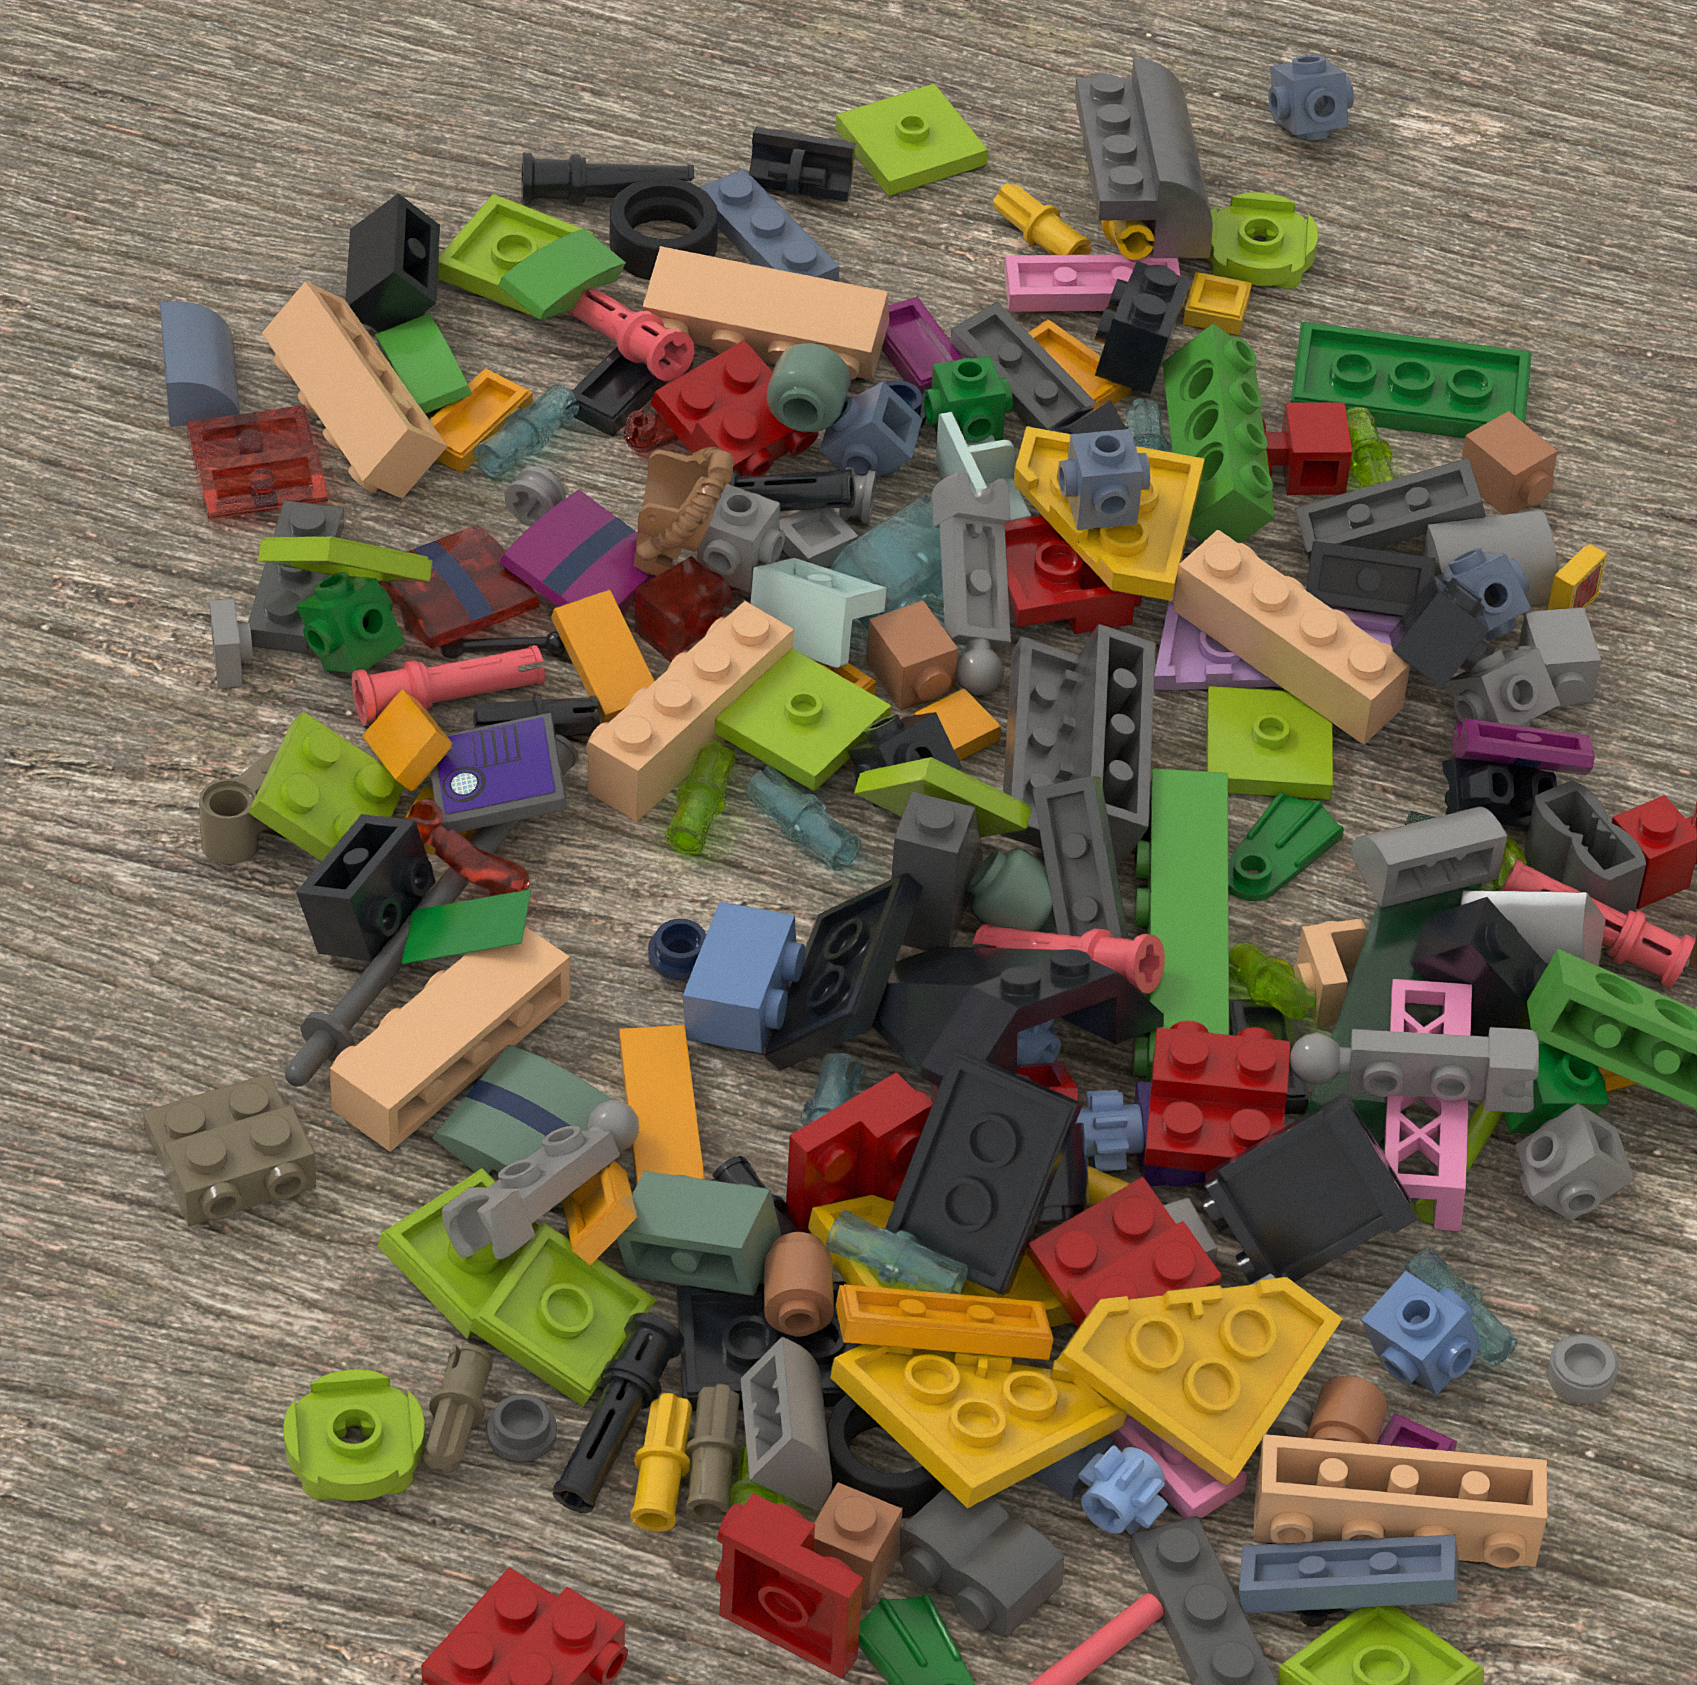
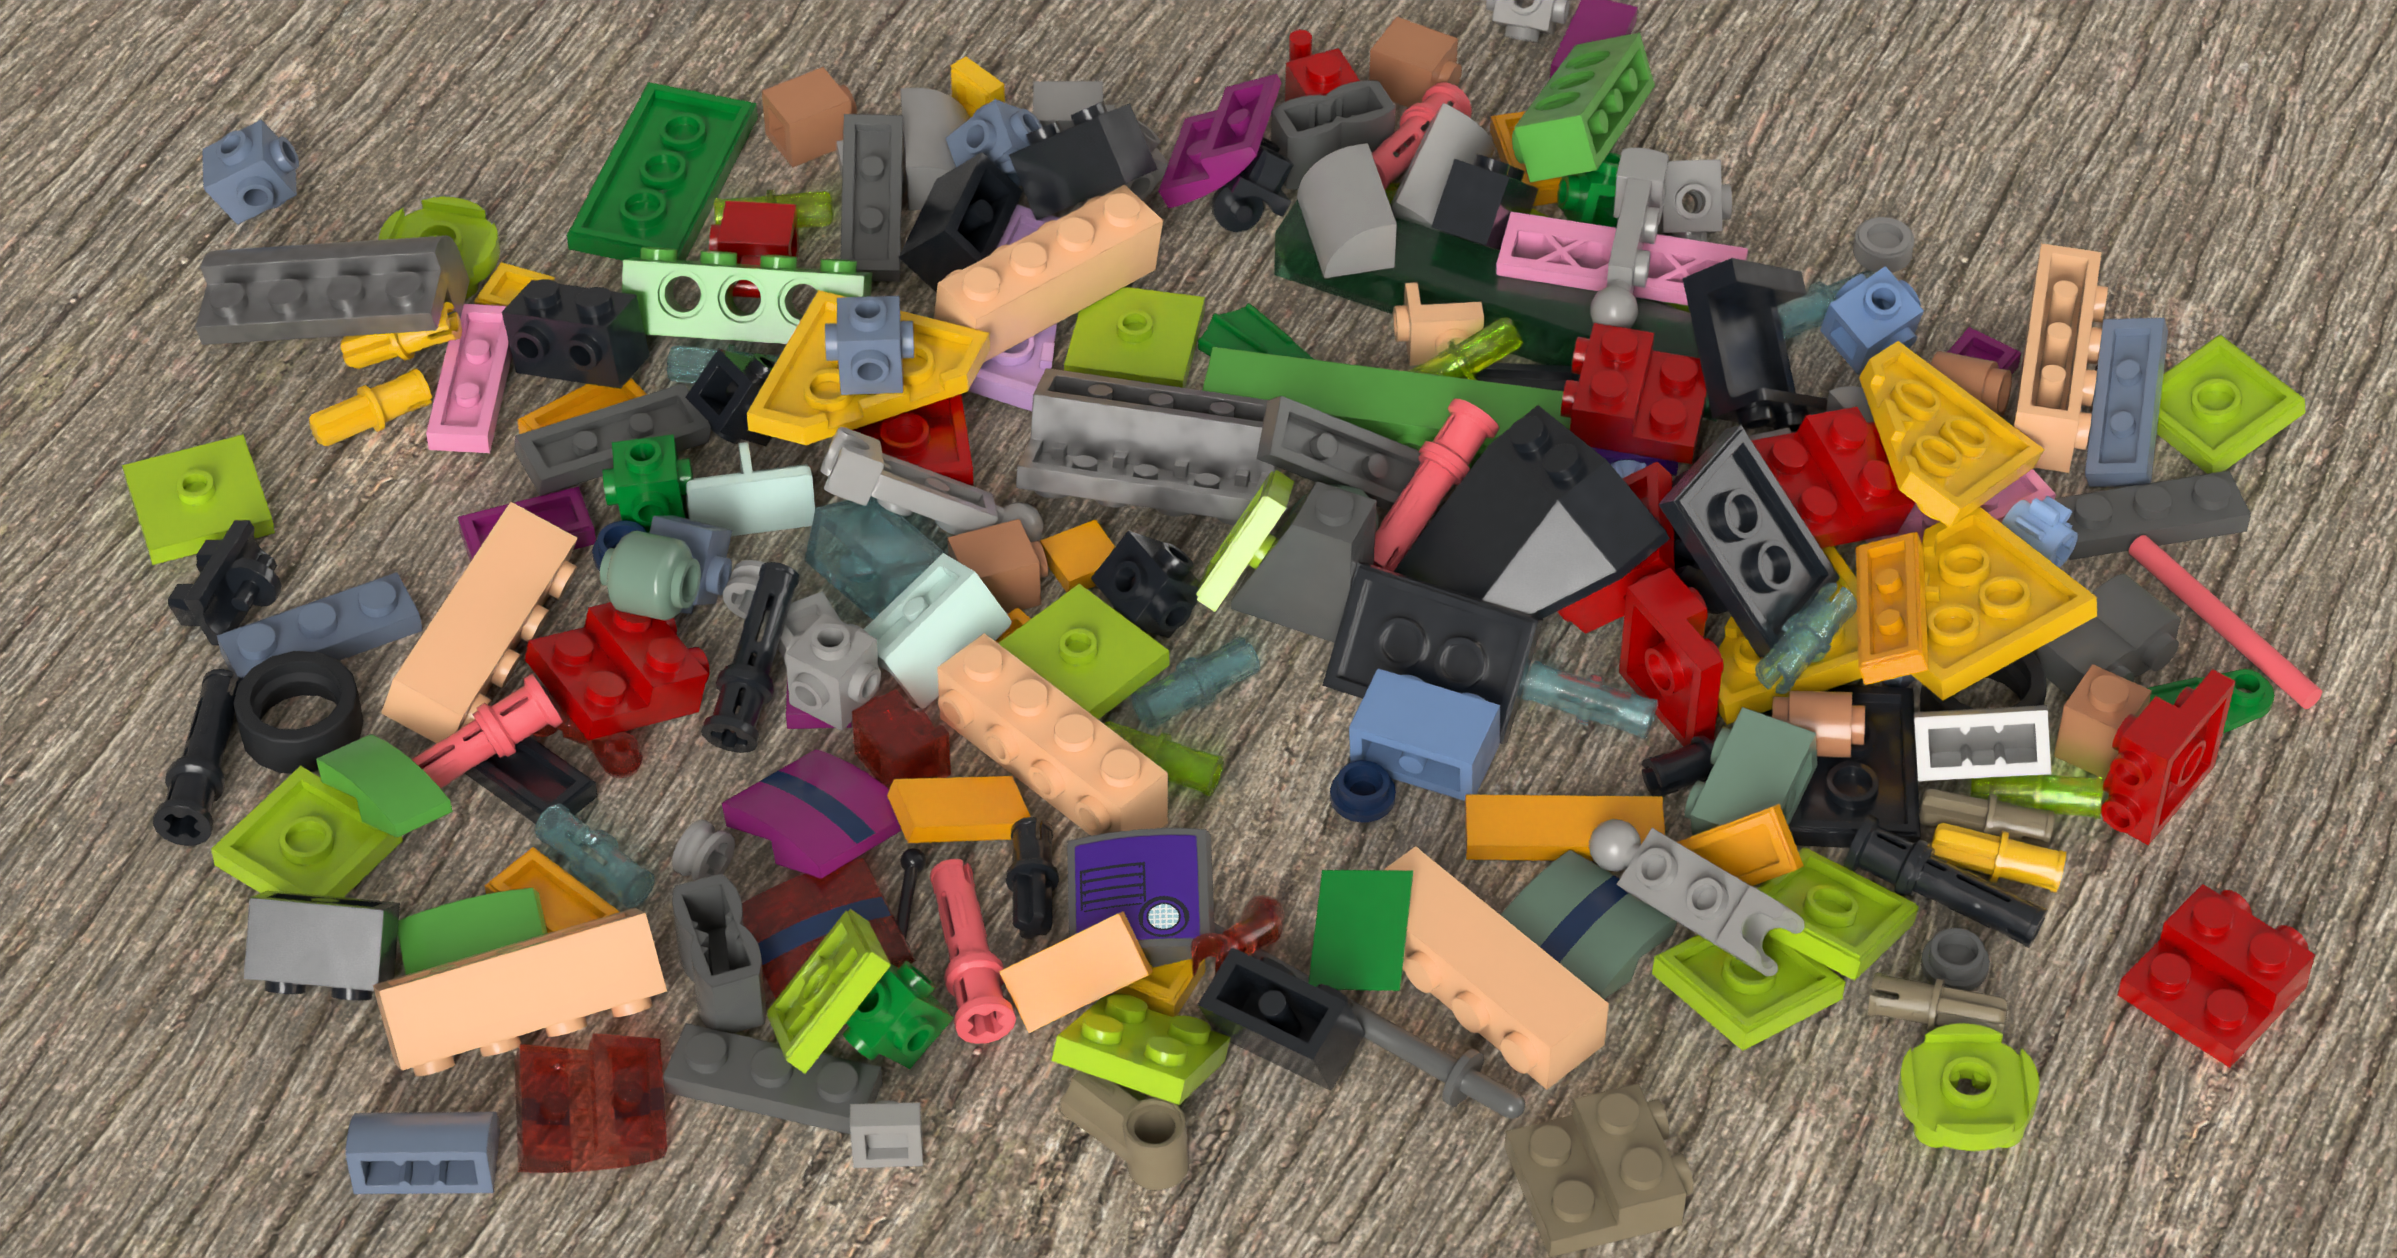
camera: 80 degrees left, 0 degrees up
(404, 503) = (719, 954): none -> dark grey brick
(678, 504) = (802, 731): medium nougat piece -> none

